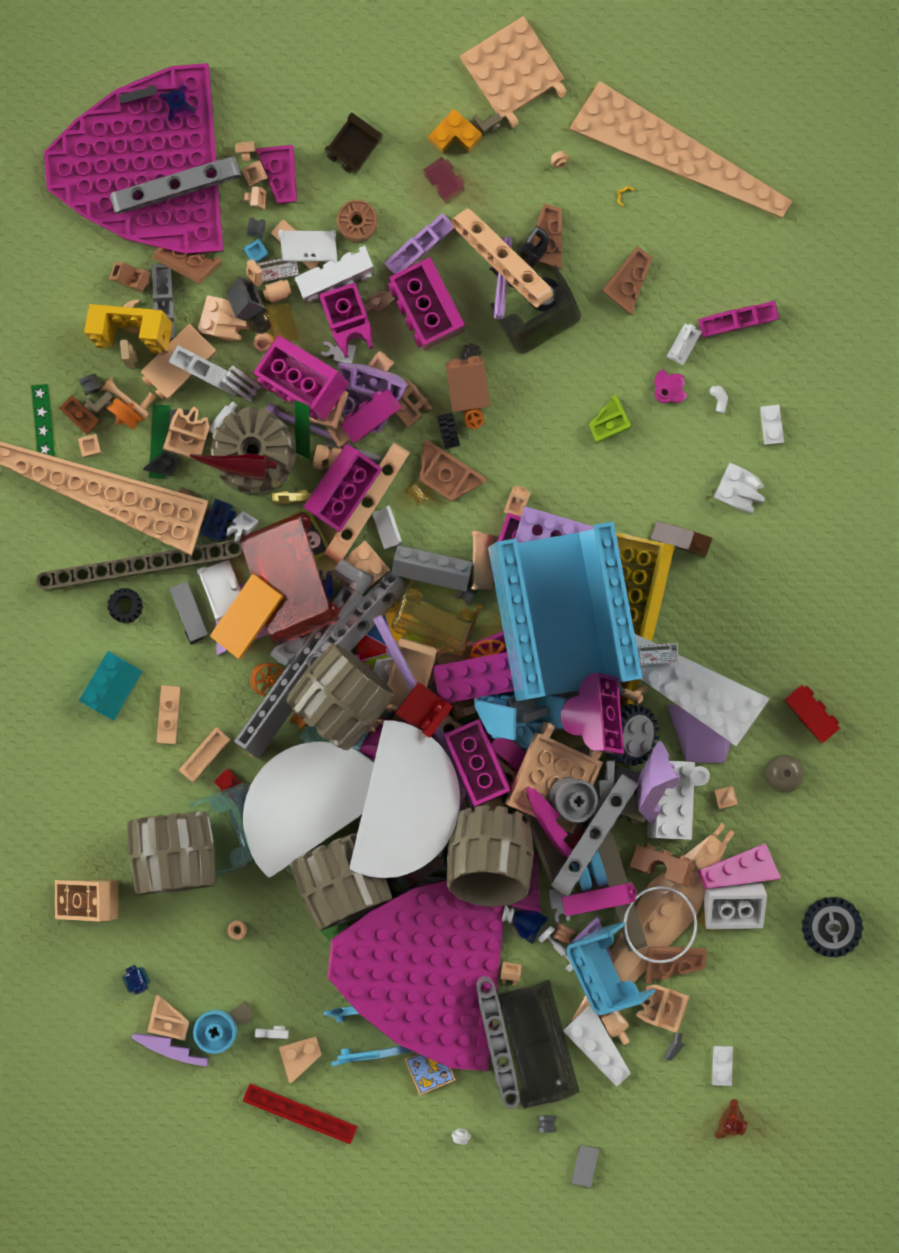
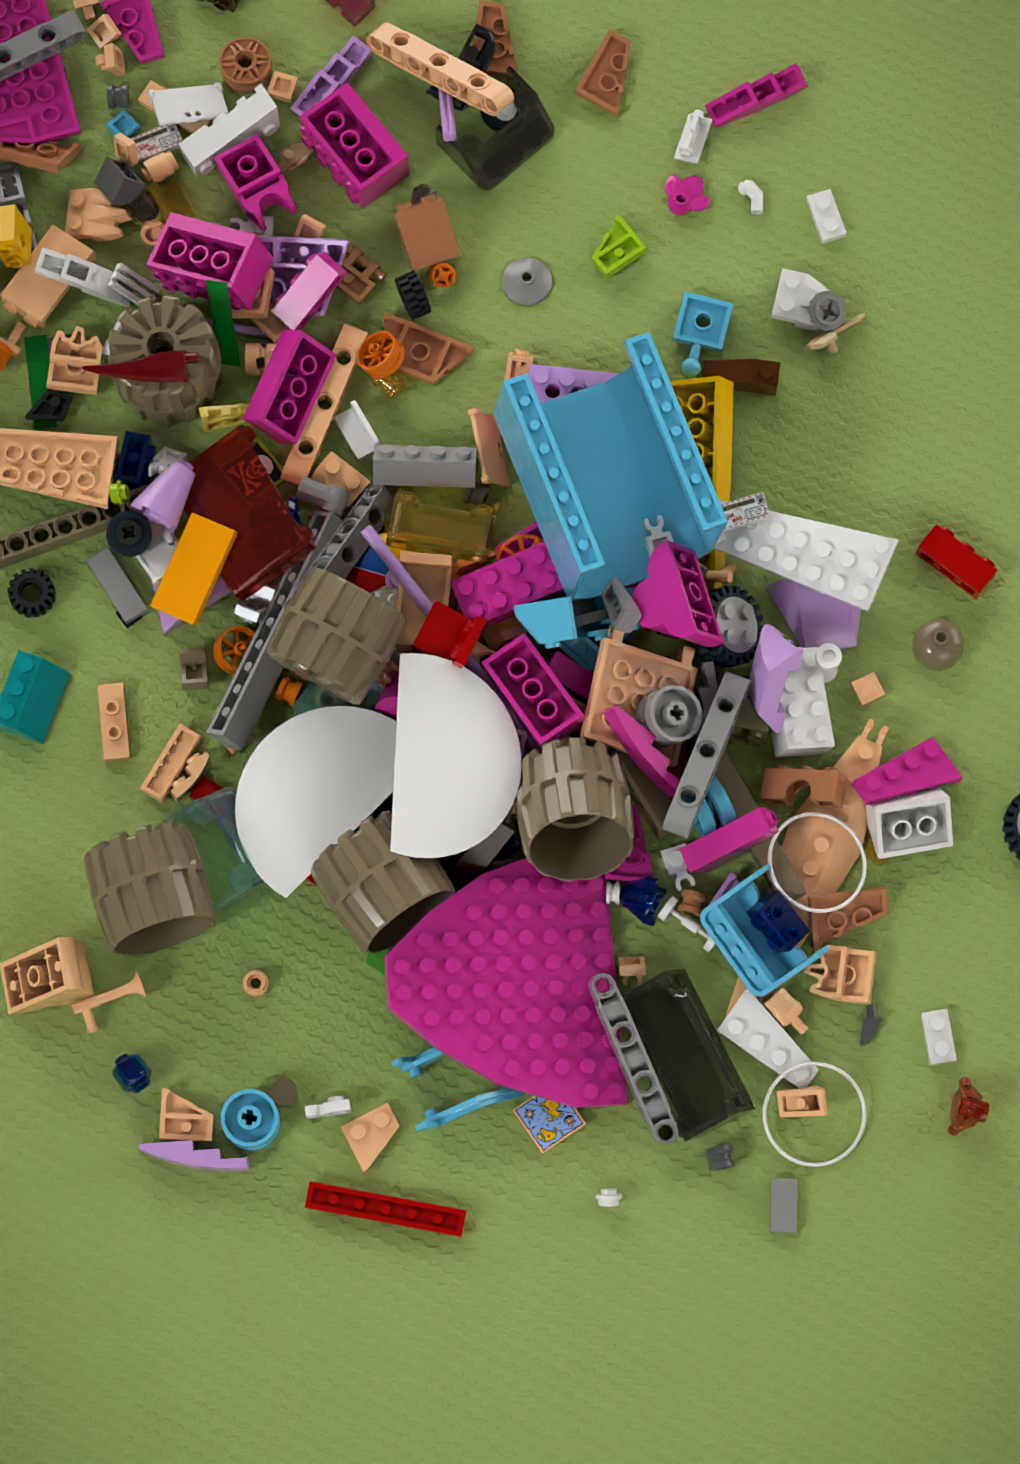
camera: 15 degrees left, 10 degrees down
(116, 923) = (86, 1005): none -> light nougat piece
(202, 545) = (119, 492): none -> lime plate
(209, 579) = (135, 540): none -> black wheel
(221, 763) = (194, 769): none -> light nougat slope
(234, 688) = (193, 669): none -> dark tan bracket
(236, 556) = (166, 496): none -> lavender cone
(381, 243) = (282, 86): none -> light nougat plate
(420, 478) = (384, 358): none -> orange wheel
(536, 442) = (530, 291): none -> light grey dish
(553, 712) = (622, 609): none -> light grey slope
(593, 664) = (656, 536): none -> white plate
(613, 1096) = (802, 1102): none -> light nougat slope
(620, 1069) = (765, 1114): none -> white piece
(622, 963) = (777, 922): none -> clear blue brick
(650, 498) = (690, 333): none -> medium azure plate
(753, 522) = (828, 339): none -> tan piece
(764, 500) = (836, 307): none -> light grey gear

